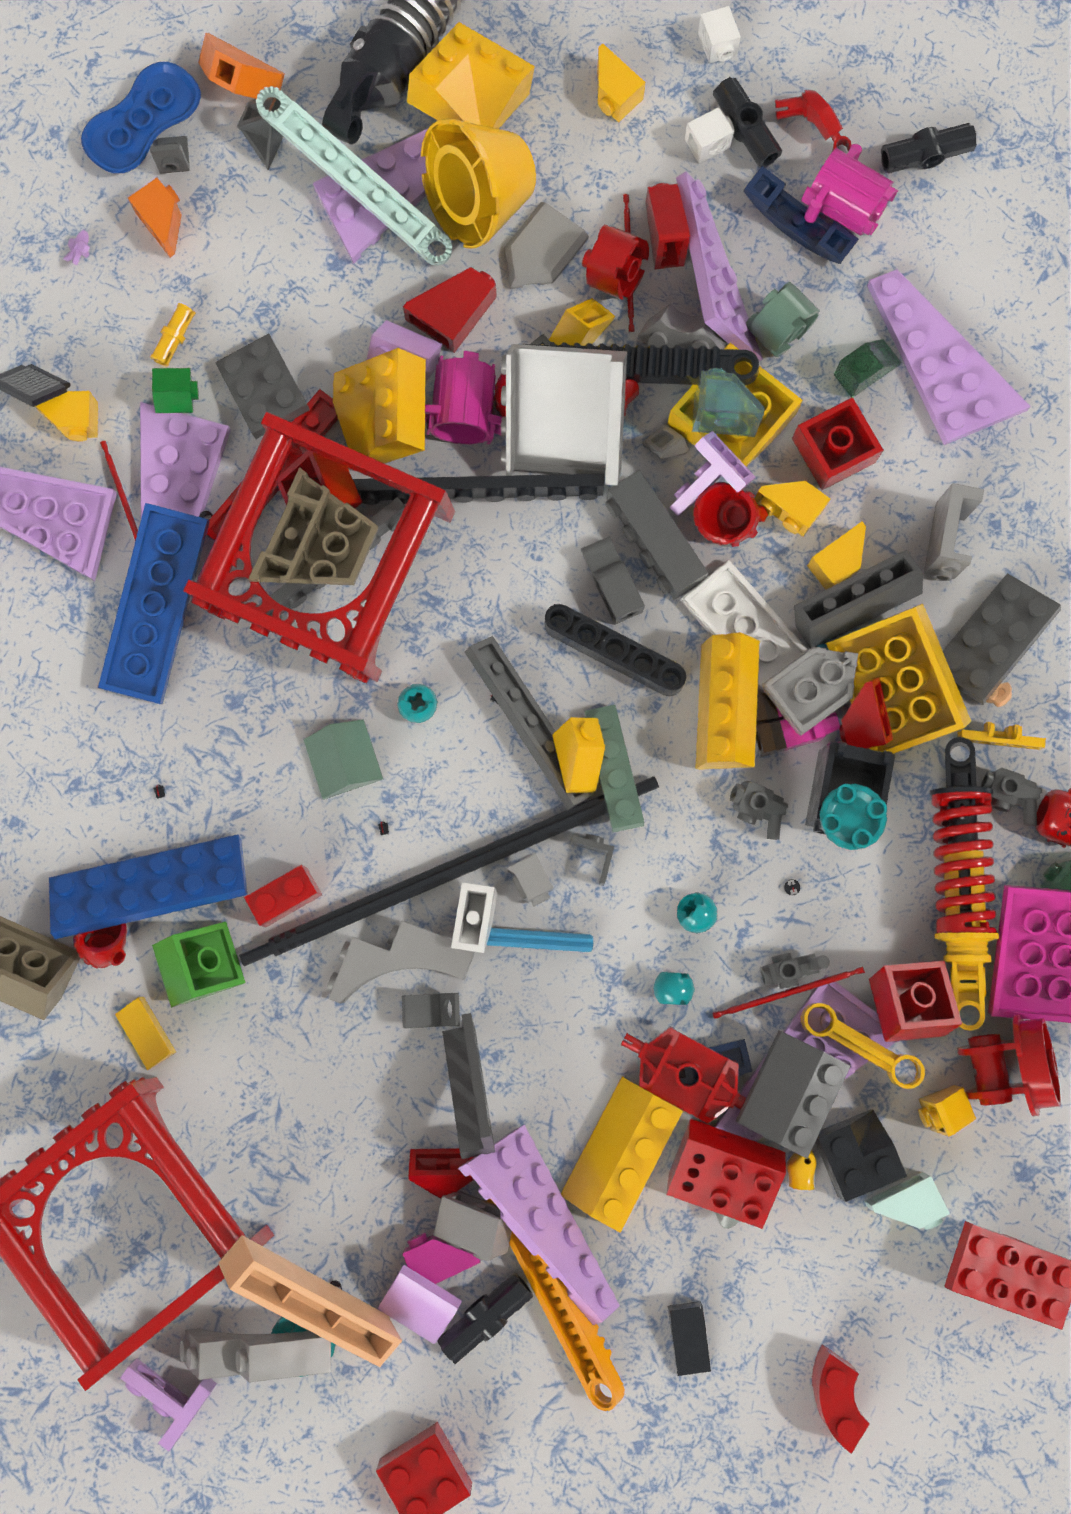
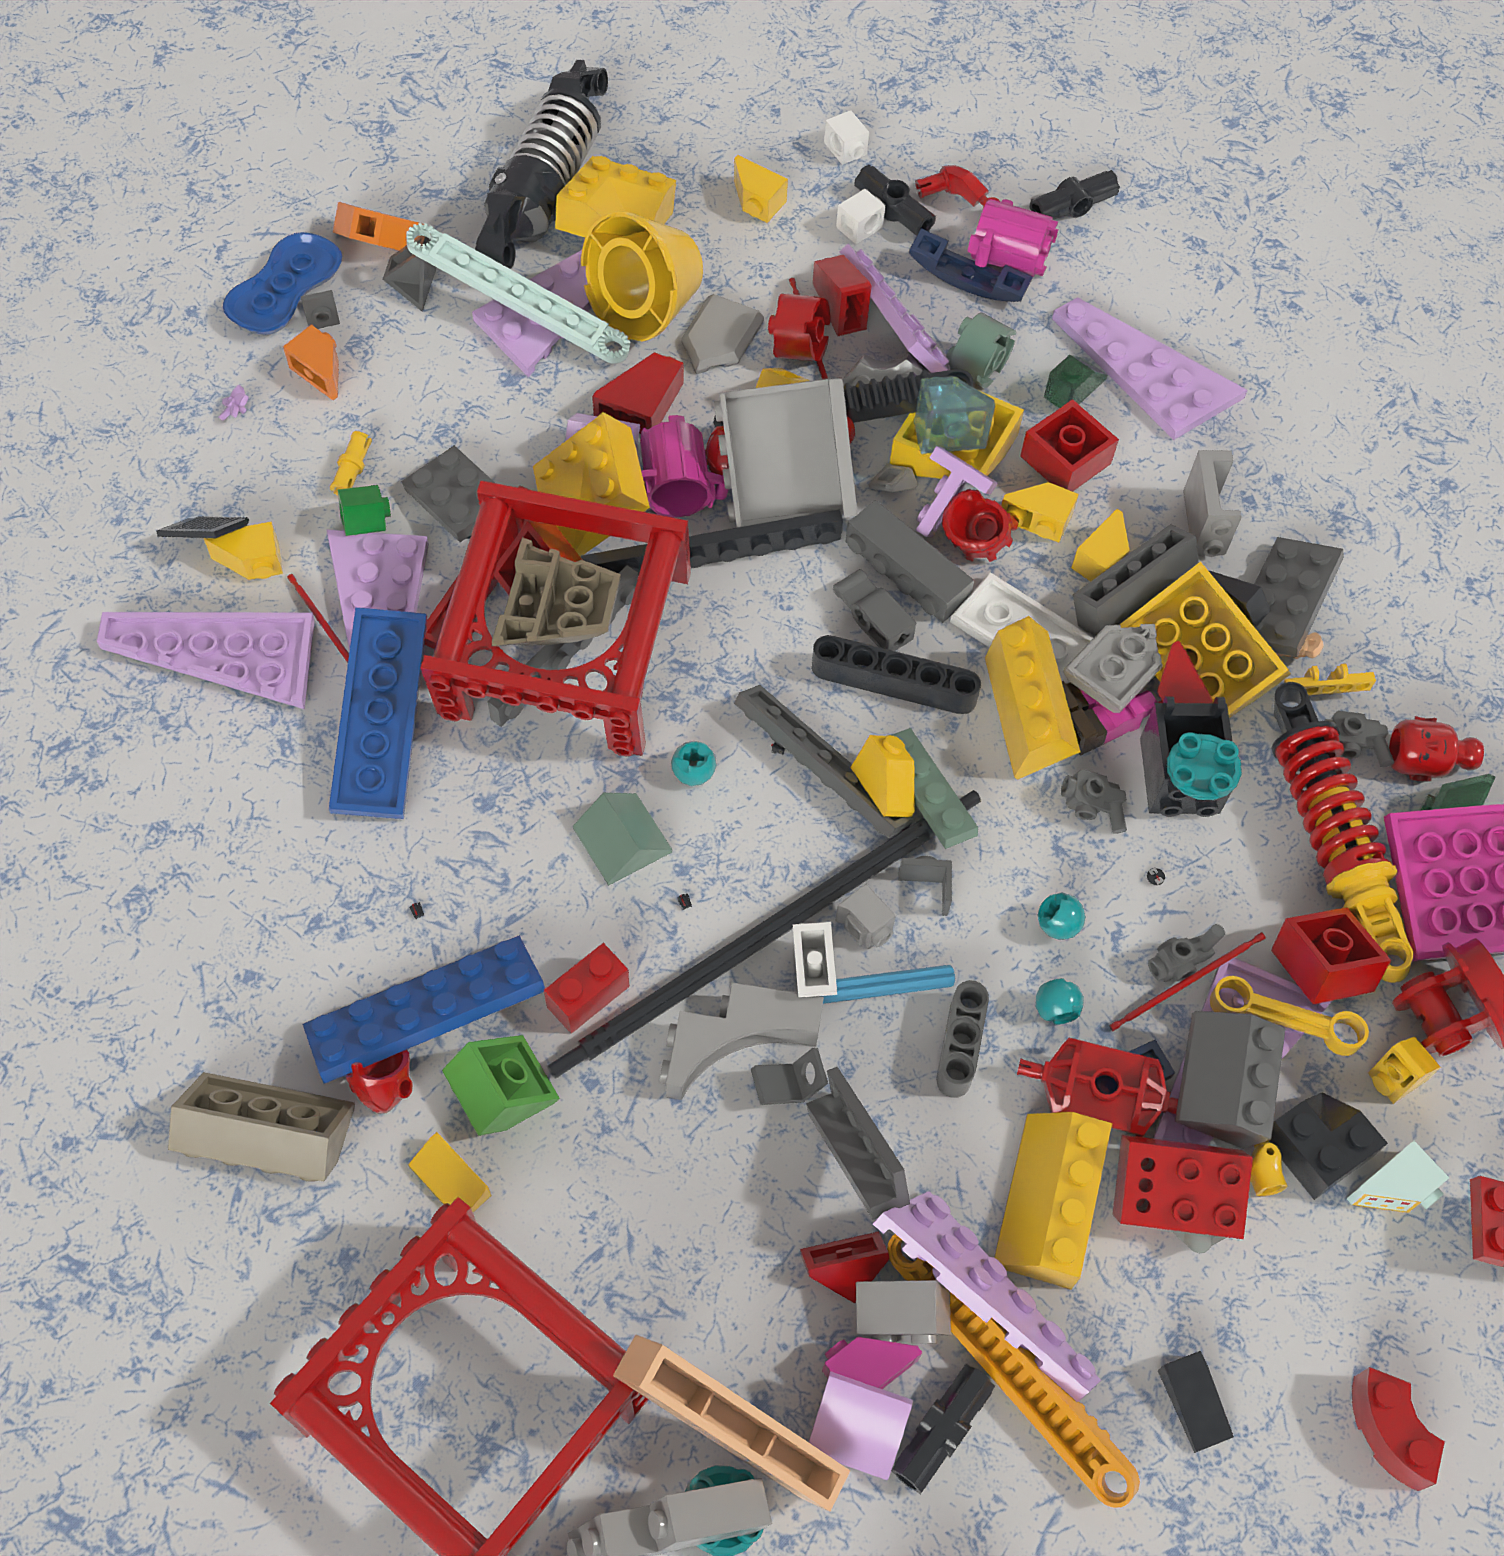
camera: 15 degrees left, 20 degrees down
(572, 1016) = (968, 1022): none -> dark grey beam
(951, 640) = (1246, 596): none -> black slope

